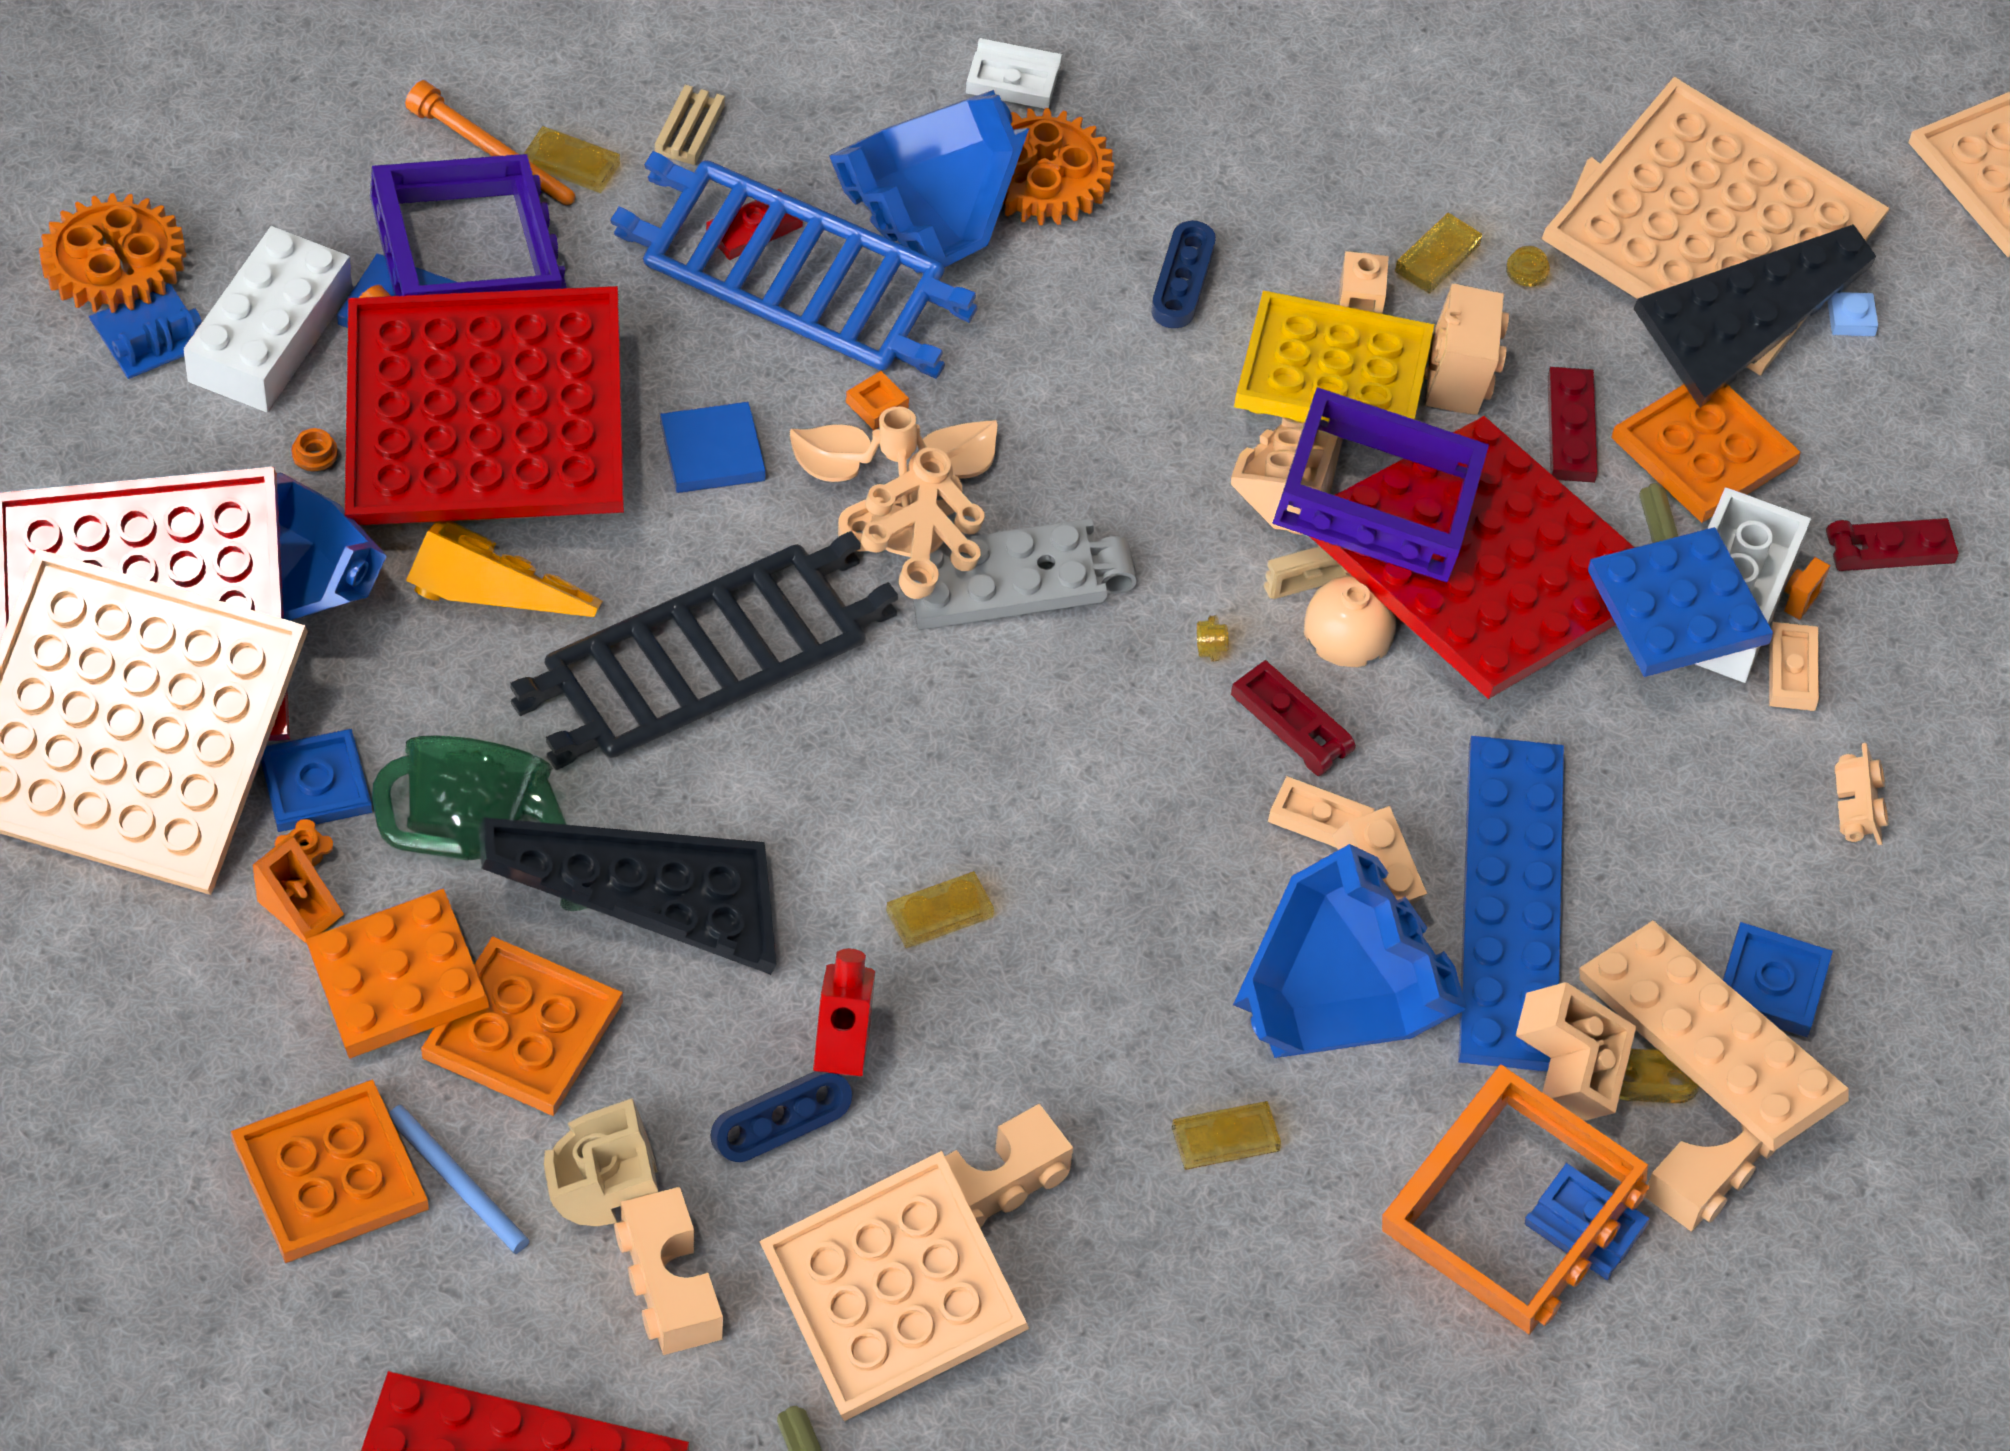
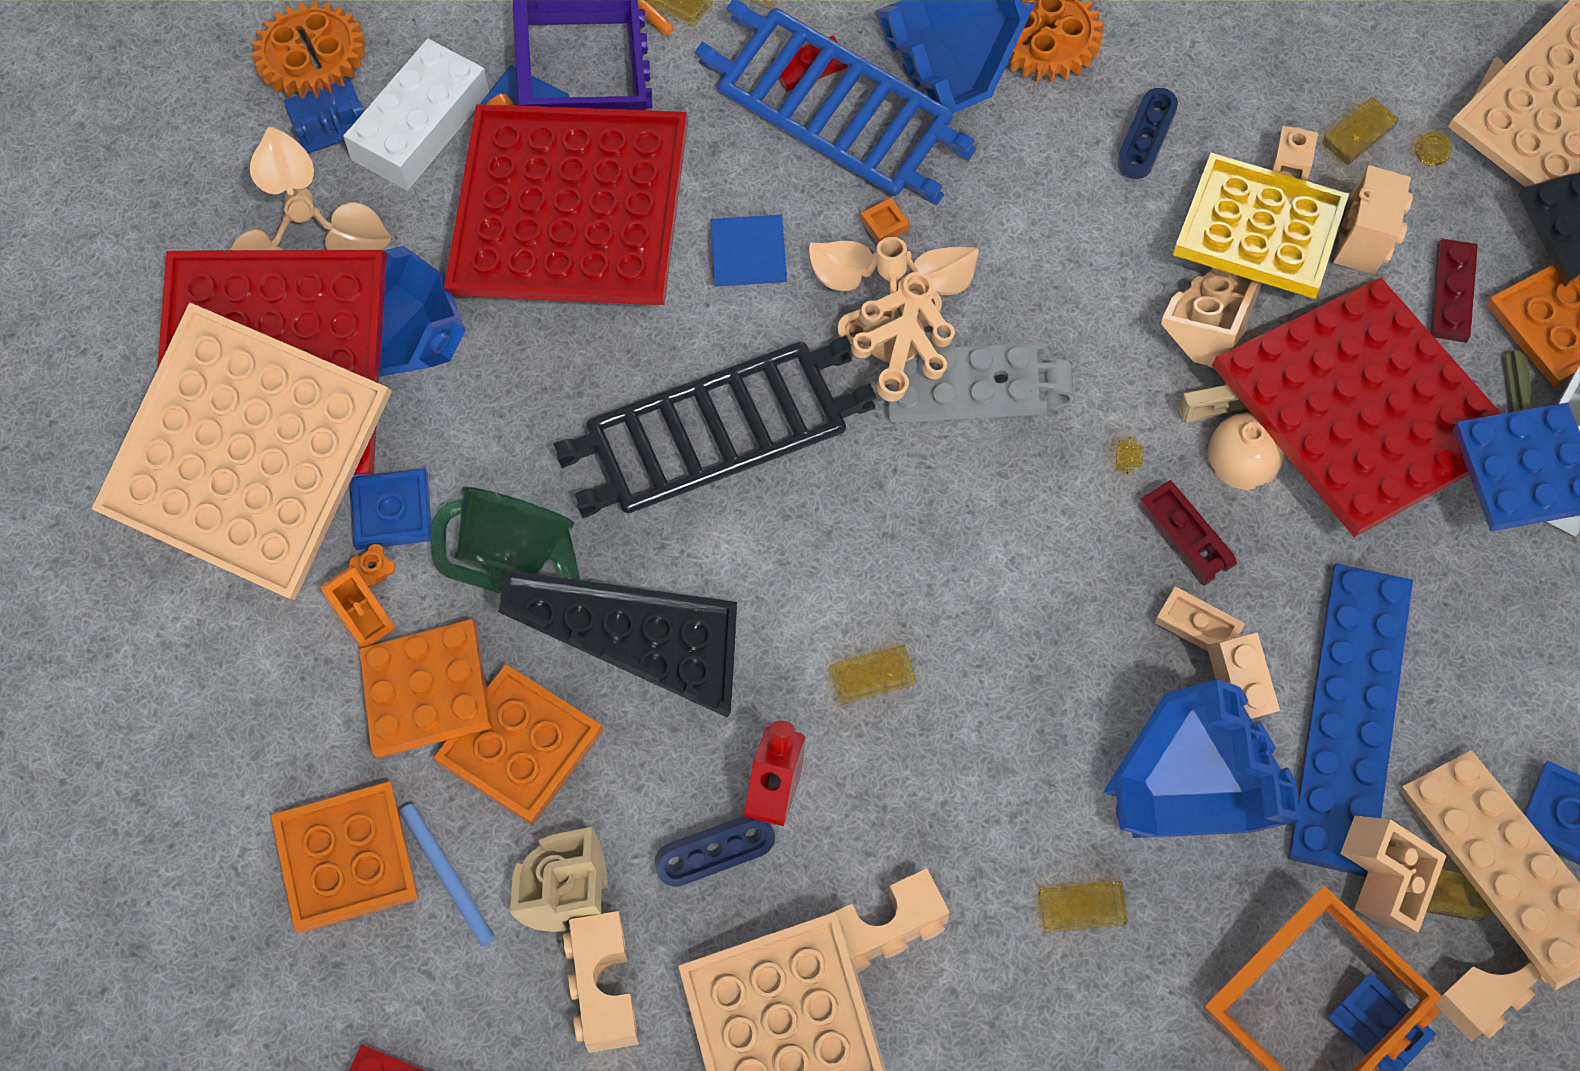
camera: 15 degrees right, 10 degrees up
(132, 379) = (285, 165): none -> light nougat plant
(314, 440) = (432, 219): orange plate -> none
(465, 569) = (535, 339): light orange wedge -> none
(1366, 528) = (1273, 381): dark purple window -> none

